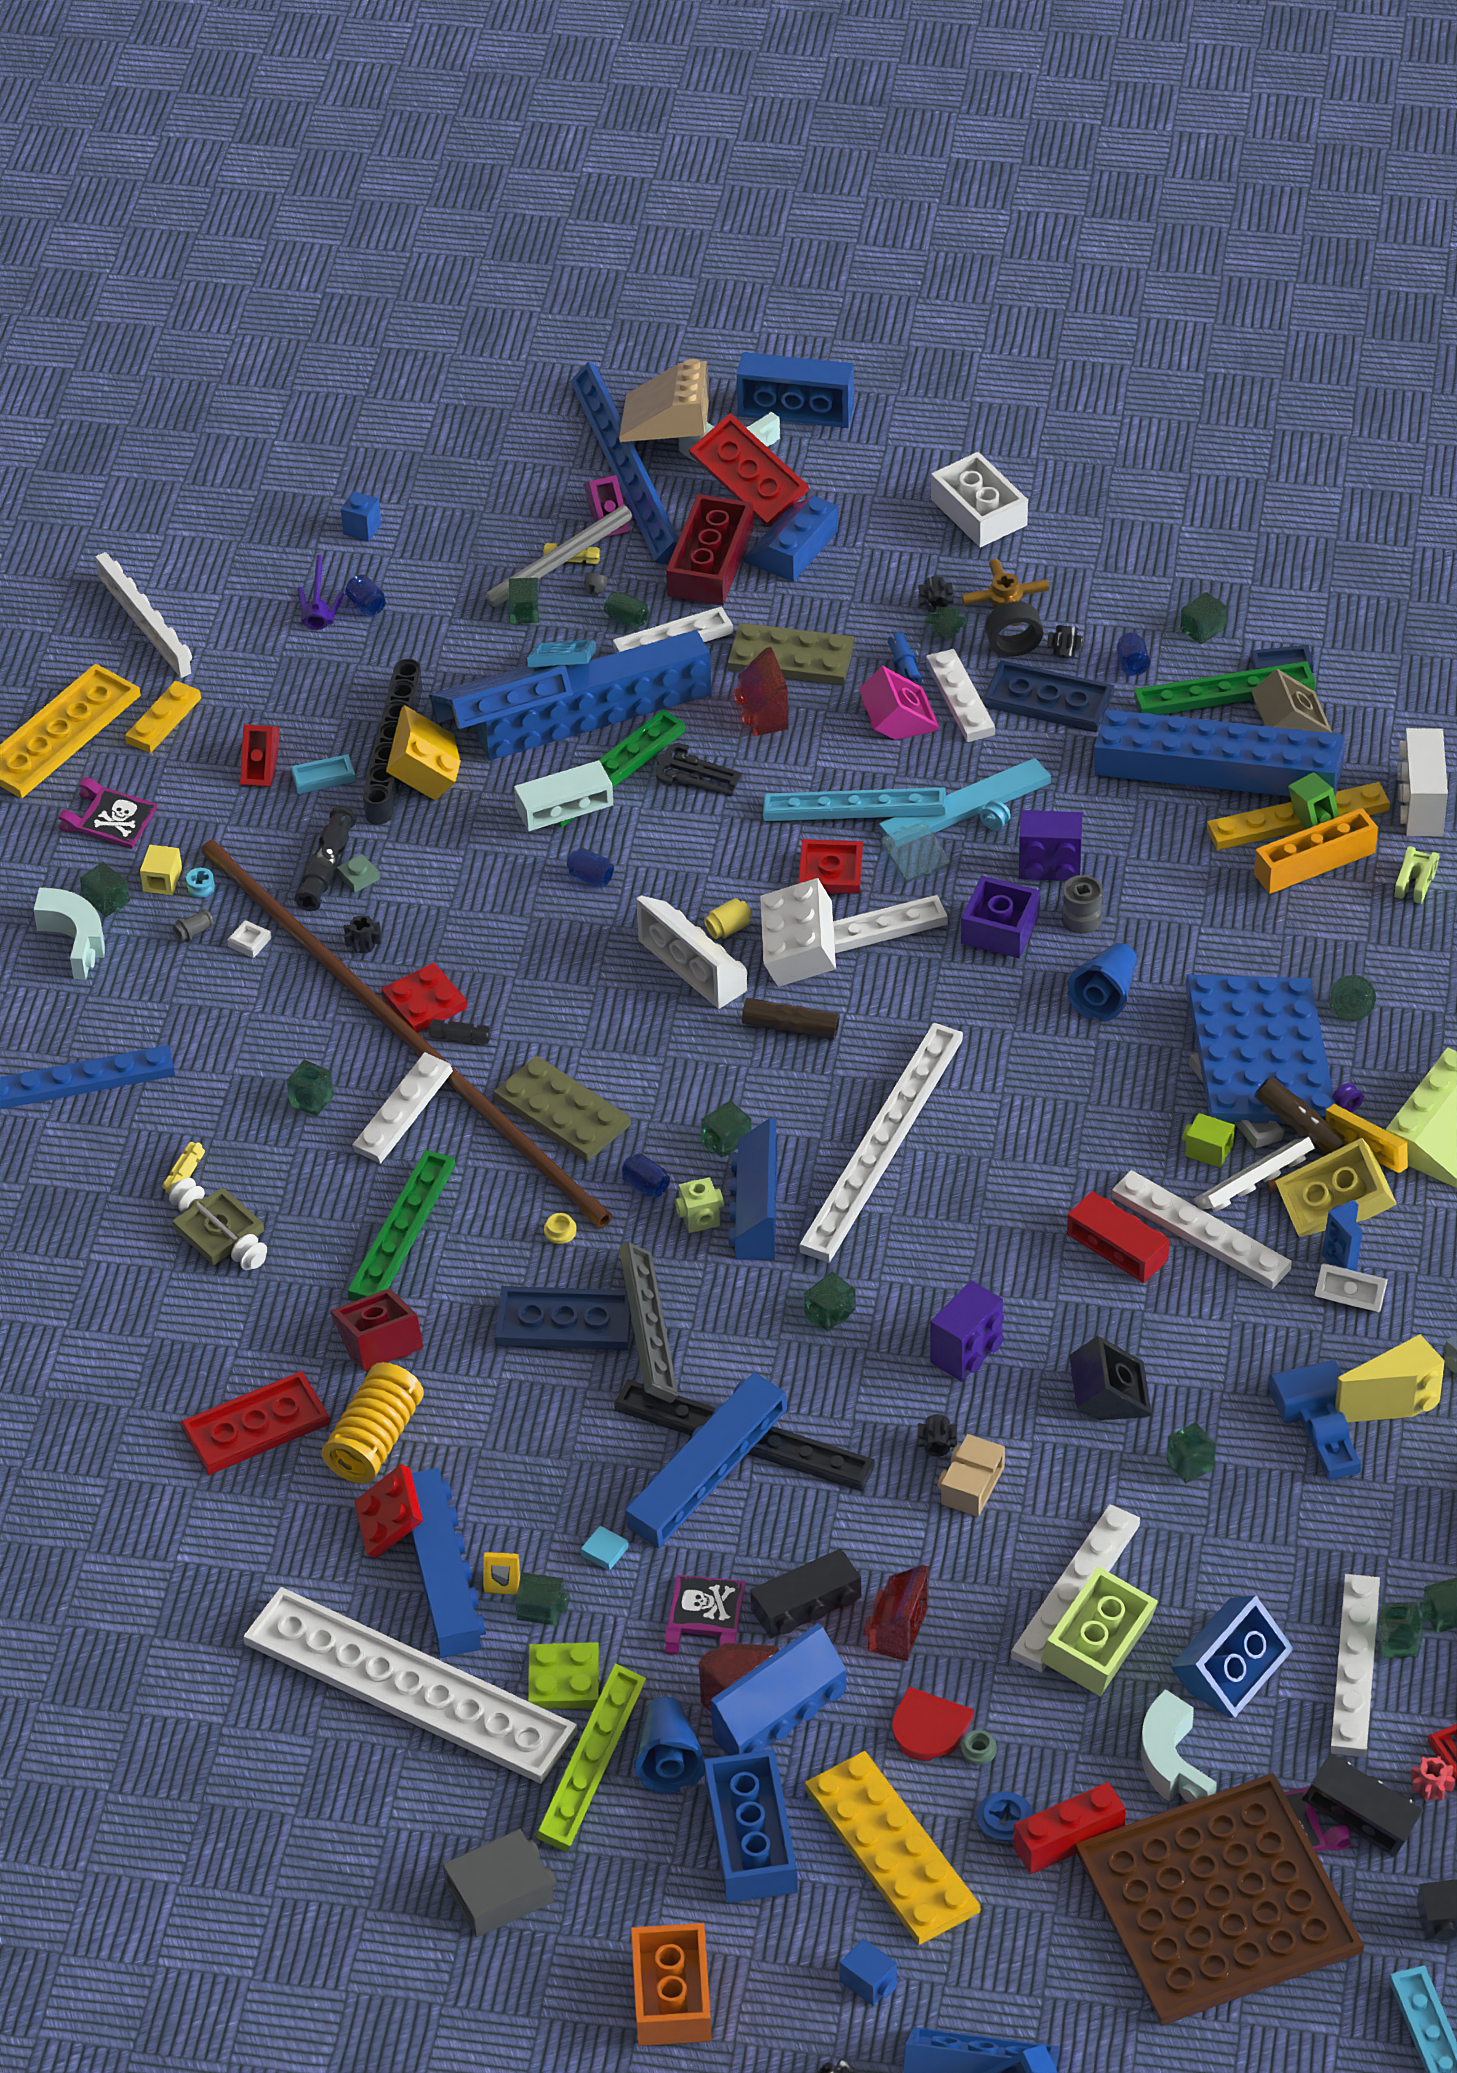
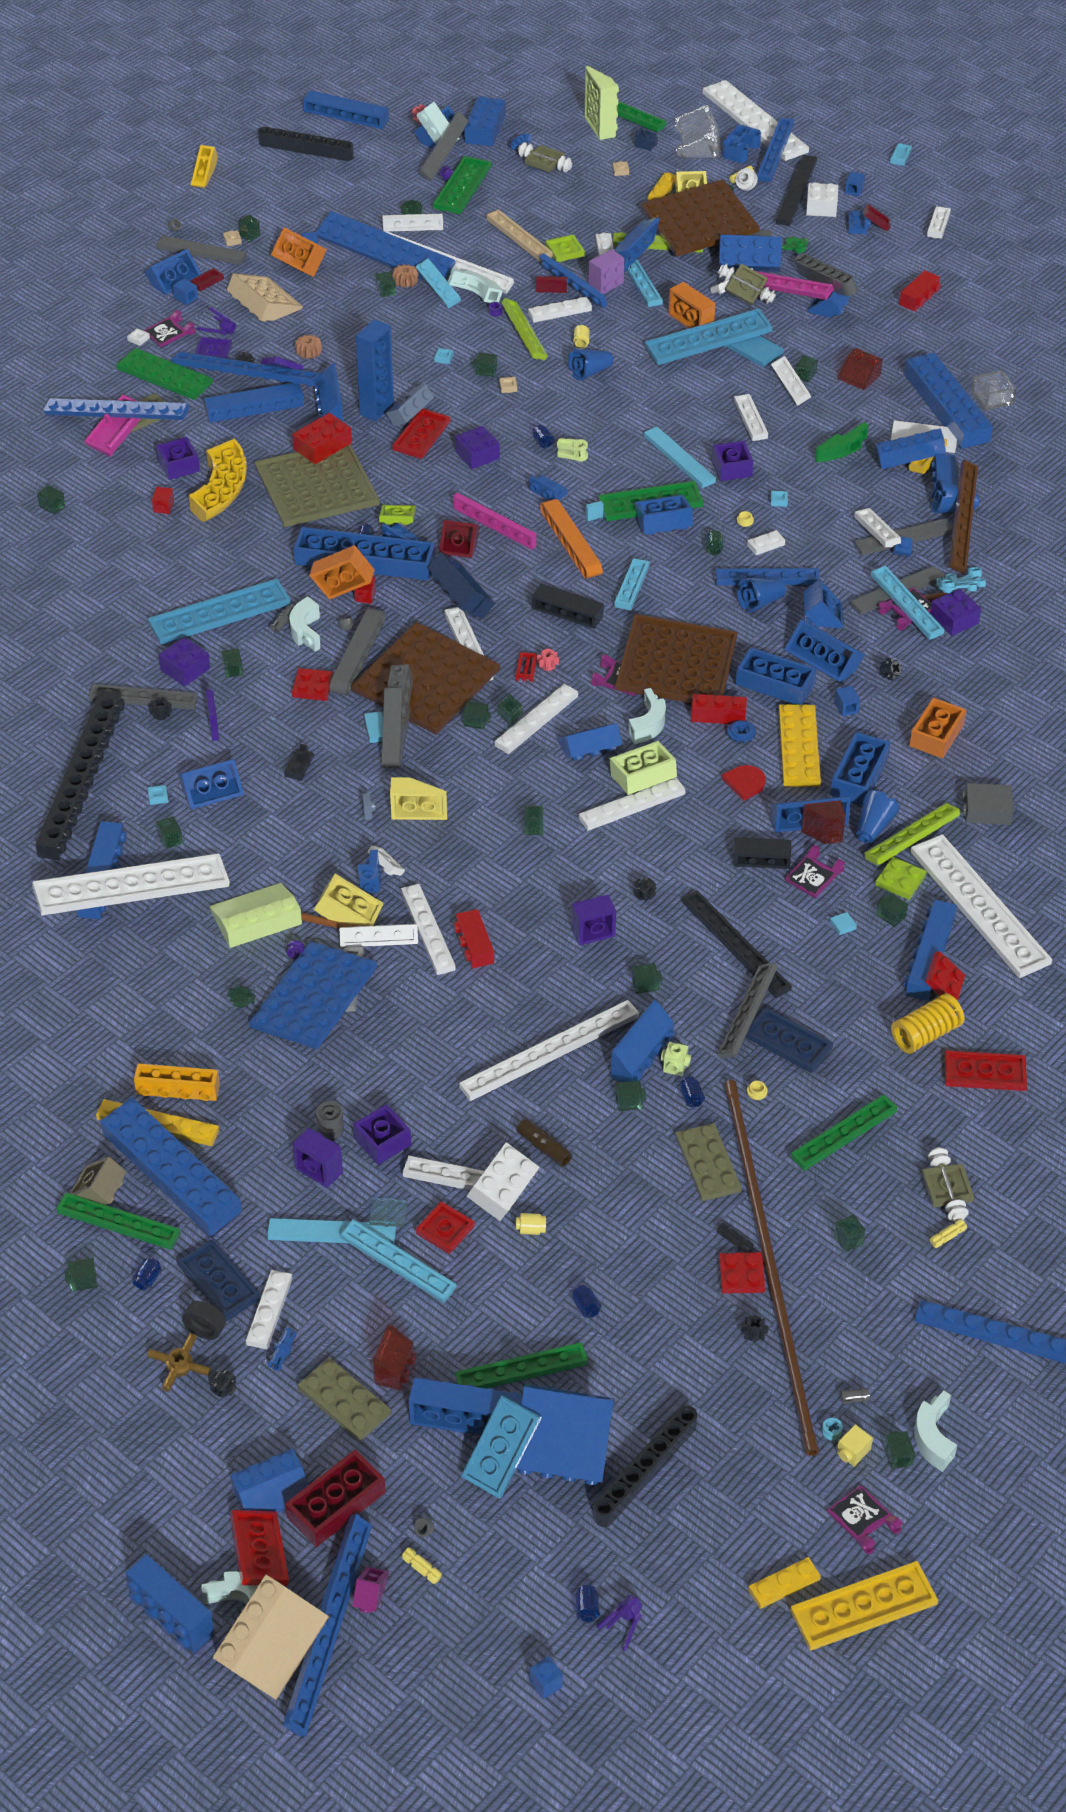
camera: 150 degrees left, 0 degrees up
(144, 616) = (751, 1686): white plate -> none
(249, 939) = (823, 1371): white tile -> none
(259, 754) = (738, 1505): red slope -> none
(323, 774) = (704, 1473): medium azure tile -> none
(323, 862) = (744, 1398): black piece -> none
(358, 873) = (728, 1382): sand green plate -> none
(378, 1329) = (894, 1074): dark red slope -> none
(402, 1108) = (800, 1201): white plate -> none
(423, 754) = (635, 1430): yellow slope -> none
(501, 1573) = (902, 933): yellow slope -> none
(523, 600) = (486, 1529): clear green brick -> none
(563, 552) = (436, 1554): light grey axle -> none
(563, 795) = (572, 1344): light aqua brick -> none
(626, 610) = (423, 1487): clear green brick -> none
(690, 952) = (570, 1206): white slope -> none
(697, 767) = (473, 1360): black piece -> none
(705, 1459) = (767, 927): blue brick -> none
(709, 624) = (409, 1450): white plate -> none
(897, 705) = (317, 1313): dark pink slope -> none
(899, 1613) = (727, 817): clear red slope -> none
(946, 621) = (234, 1358): clear green plate -> none
(972, 1475) = (650, 864): tan piece -> none
(979, 499) = (133, 1438): white brick -> none
(982, 1740) = (731, 761): sand green plate -> none
(995, 815) = (324, 1208): medium azure bush -> none
(1020, 1943) = (776, 676): none -> blue brick
(1065, 641) = (178, 1301): black gear -> none
(1103, 983) = (357, 1069): blue cone -> none
(1109, 1382) = (542, 874): black slope -> none
(1208, 1140) = (386, 961): lime brick -> none
(1280, 656) = (65, 1227): dark blue tile -> none
(1299, 1116) = (335, 938): dark brown axle -> none
(1310, 1396) = (455, 825): blue plate -> none
(1313, 800) = (154, 1098): bright green slope -> none
(1362, 1804) = (589, 657): black brick -> none
(1388, 1148) = (308, 916): yellow plate -> none
(1419, 866) = (135, 1049): yellowish green piece -> none
(1424, 782) = (80, 1086): white brick -> none

